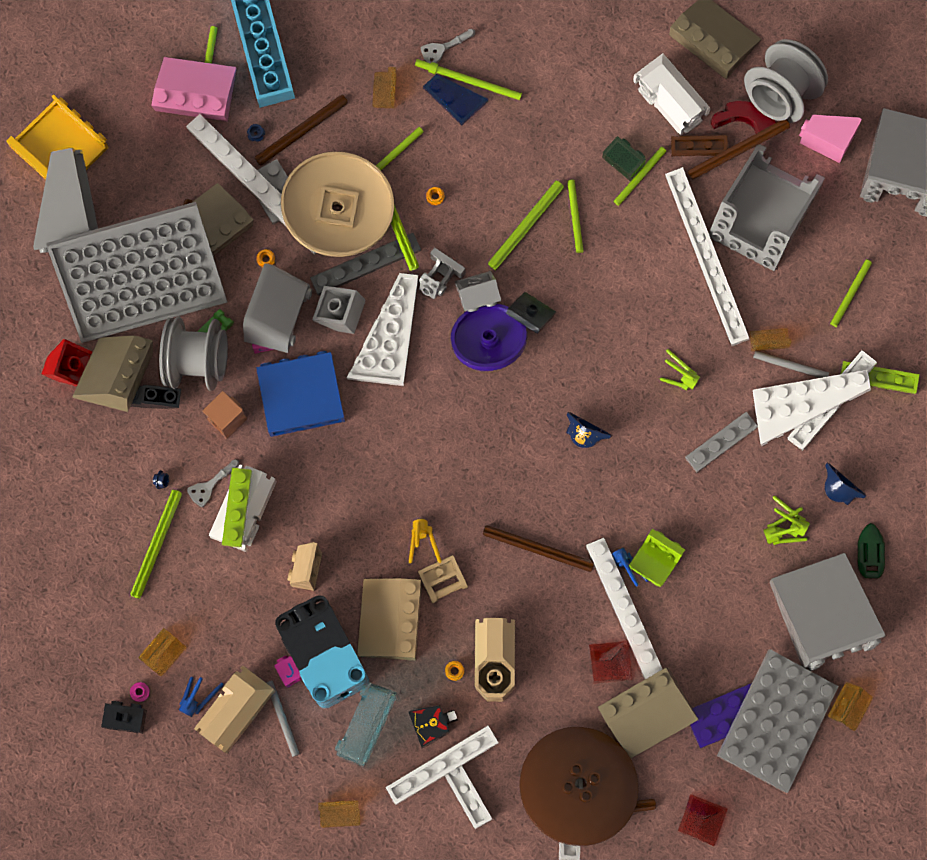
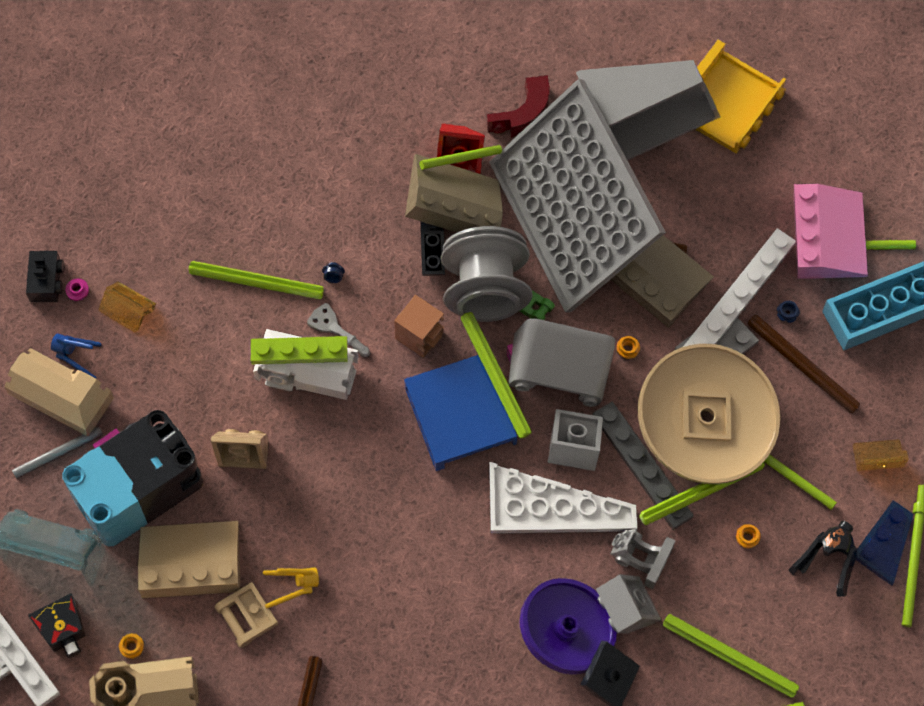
camera: 75 degrees right, 10 degrees down
(31, 294) = (516, 121): none -> dark red arch
(81, 360) = (460, 157): none -> lime bar
(277, 360) = (496, 375): none -> lime axle
(453, 131) = (833, 540): none -> black piece

